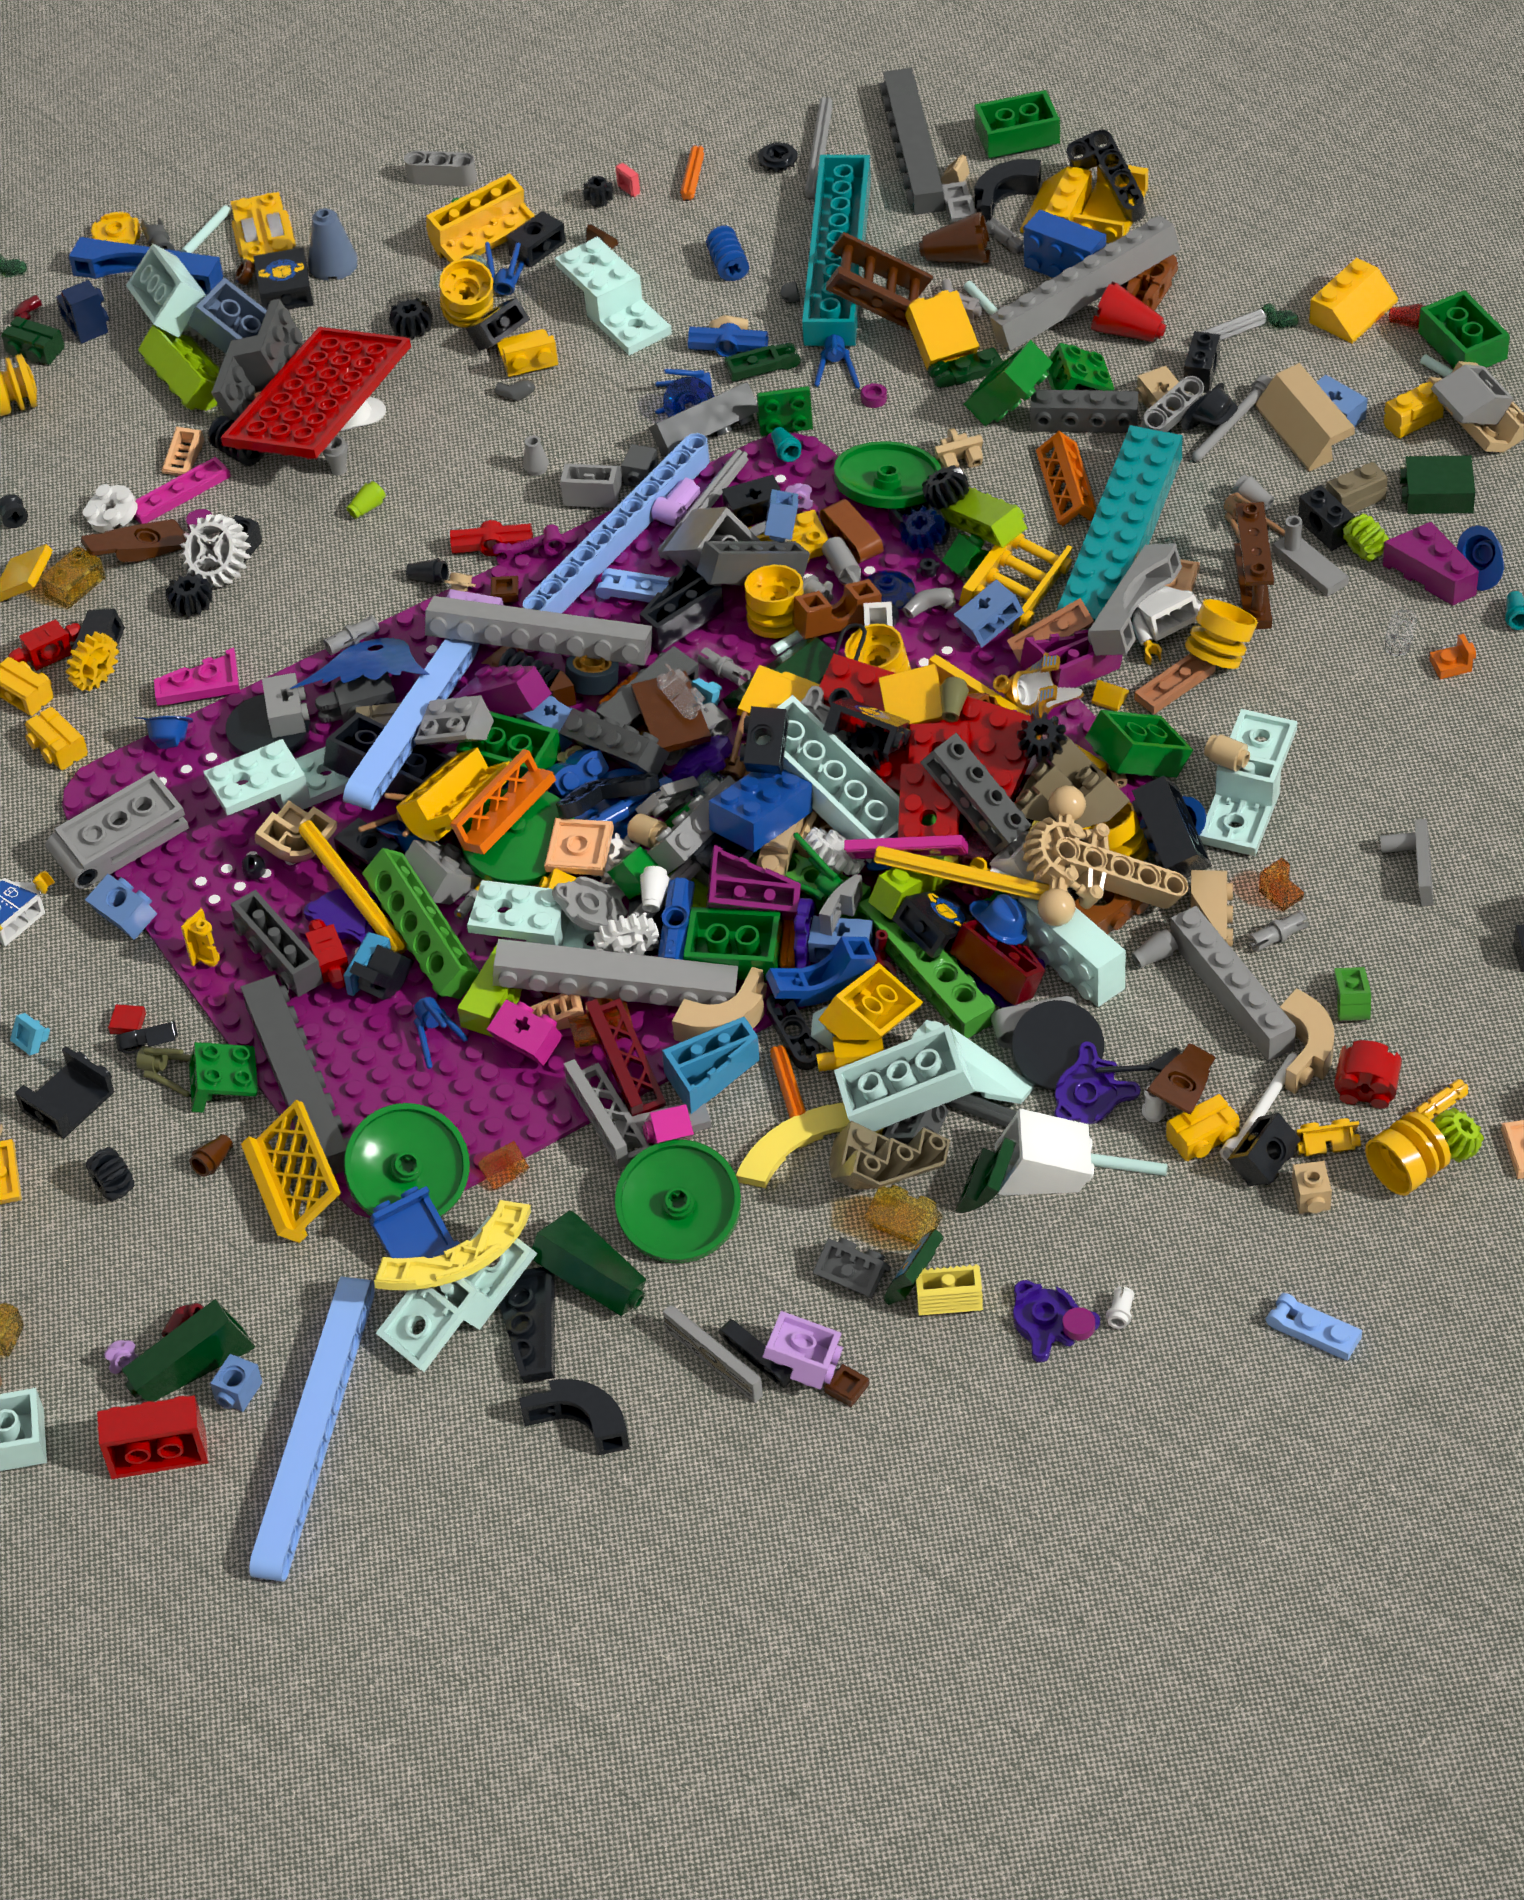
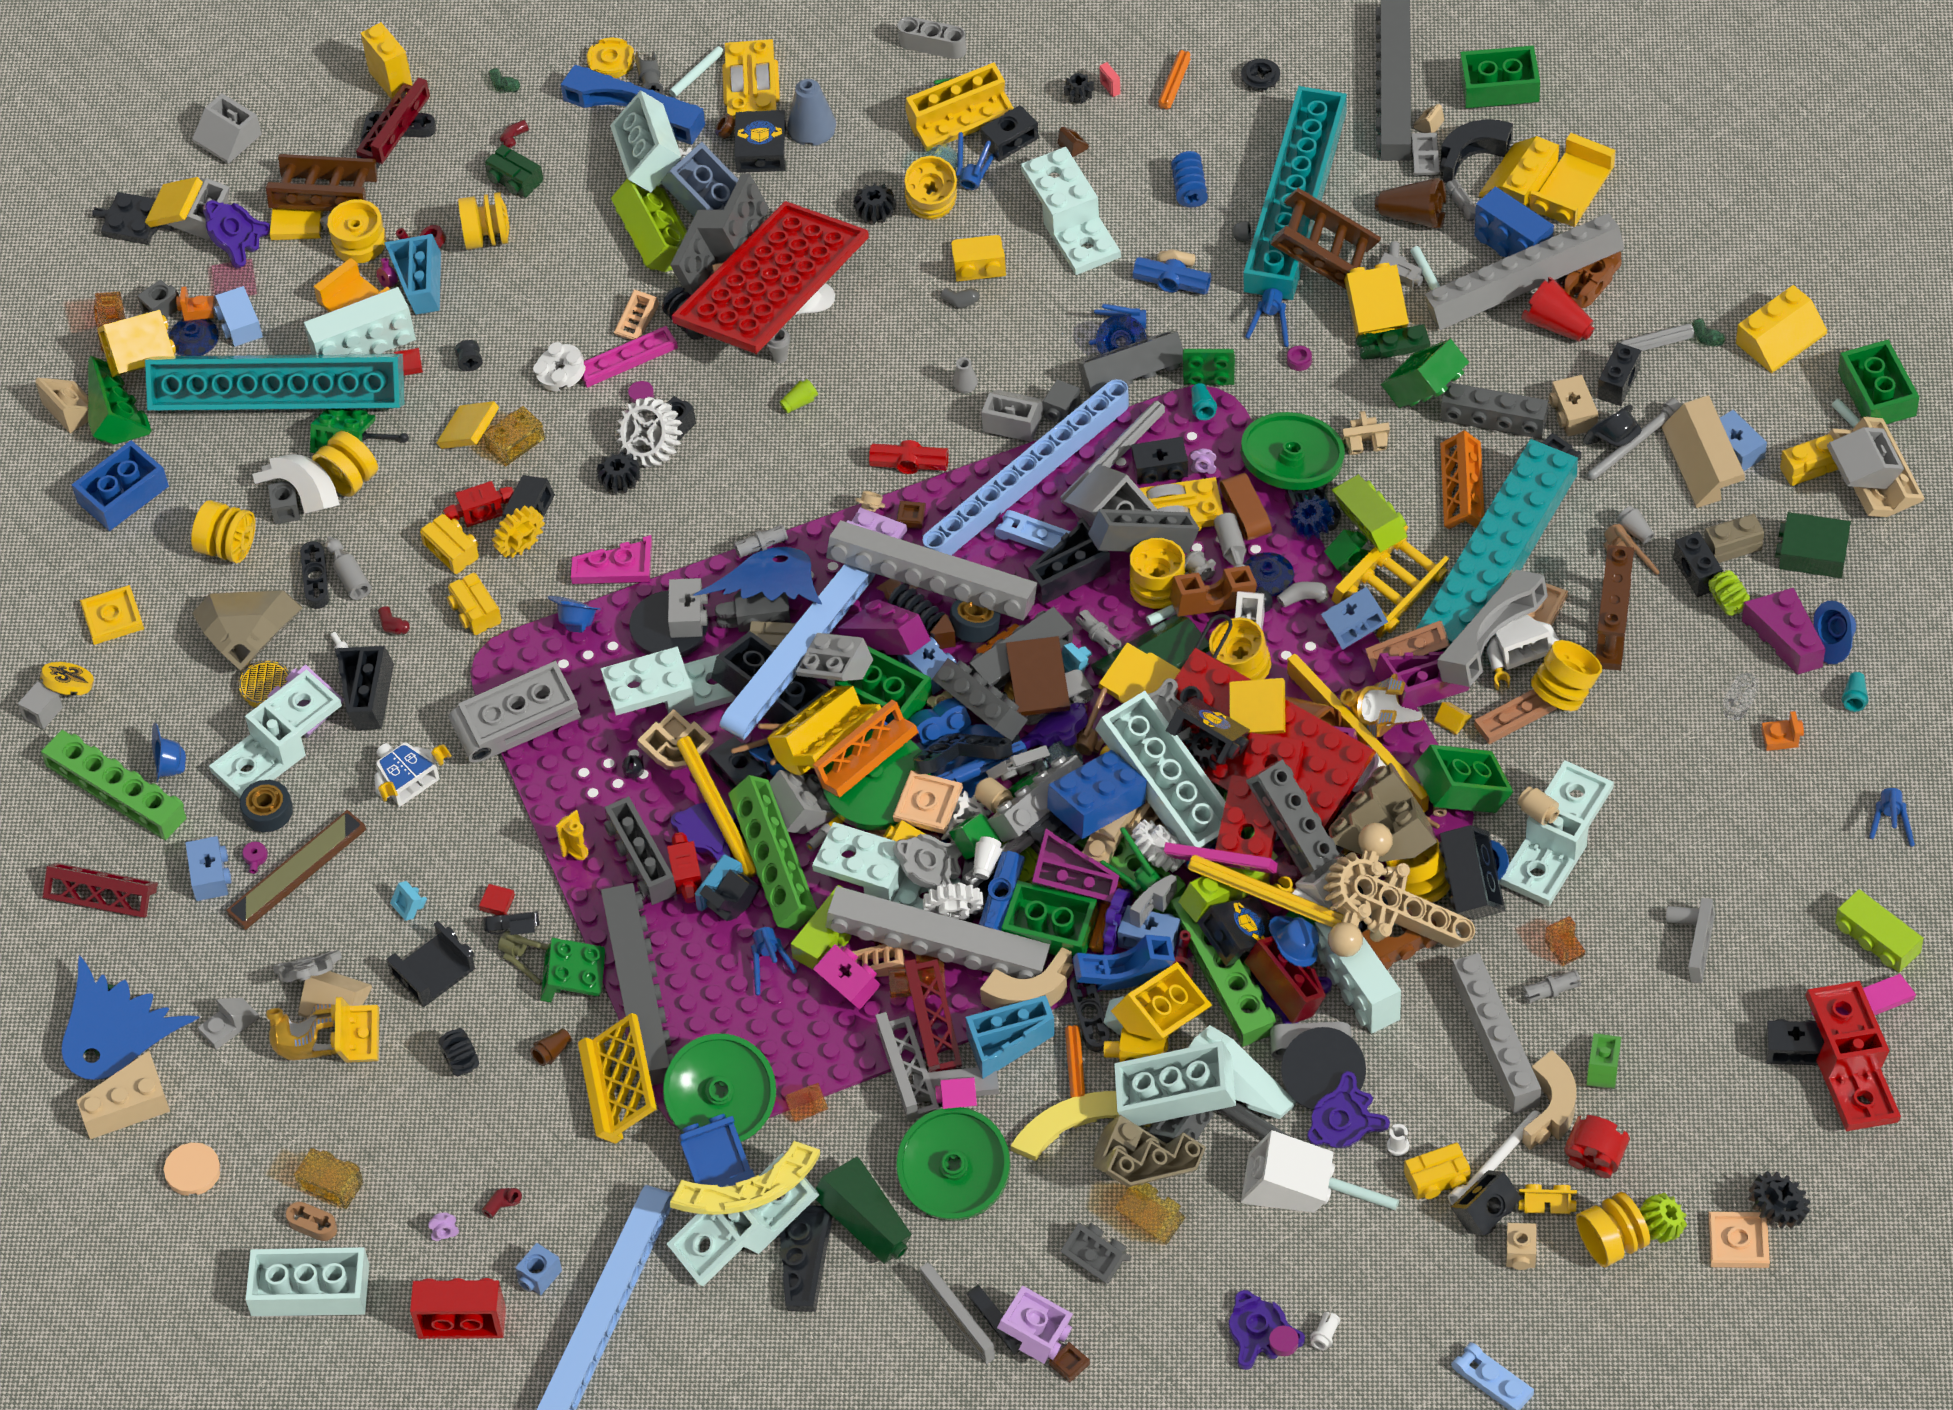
camera: 10 degrees right, 5 degrees up
(83, 311) = (566, 148): dark blue brick -> none
(122, 906) = (513, 799): medium blue brick -> none
(137, 541) = (579, 407): reddish brown piece -> none
(187, 1353) = (501, 1235): dark green slope -> none
(428, 571) = (844, 482): black cone -> none
(497, 323) = (955, 224): black brick -> none
(551, 540) = (964, 471): magenta brick -> none
(581, 1403) = (837, 1341): black arch -> none
(675, 505) = (1084, 453): lavender piece -> none
(675, 683) = (1056, 667): clear hinge -> none
(761, 361) = (1199, 304): dark green hinge -> none
(767, 757) = (1113, 750): black brick -> none
(781, 515) = (1179, 485): medium blue brick -> none
(819, 144) = (1304, 64): light grey axle -> none
(913, 1266) = (1148, 1263): dark green slope -> none
(928, 567) = (1310, 556): black piece -> none
(945, 487) = (1341, 478): black gear -> none
(949, 1290) = (1175, 1290): light yellow brick -> none
(953, 696) = (1293, 714): olive cone -> none
(985, 1176) = (1231, 1187): dark green slope -> none
(1041, 727) = (1377, 766): black gear -> none
(1078, 366) = (1498, 361): green bracket -> none
(1114, 176) = (1579, 155): black beam -> none
(1155, 948) = (1436, 985): light grey cone -> none
(1157, 1065) = (1422, 1102): black piece -> none
(1175, 398) = (1580, 415): light grey beam -> none
(1183, 1078) = (1428, 1122): reddish brown piece -> none
(1211, 895) = (1495, 946): tan slope -> none
(1308, 560) = (1672, 606): light grey piece -> none
(1406, 315) = (1829, 352): clear red cone -> none
(1443, 1099) = (1660, 1180): yellow axle -> none

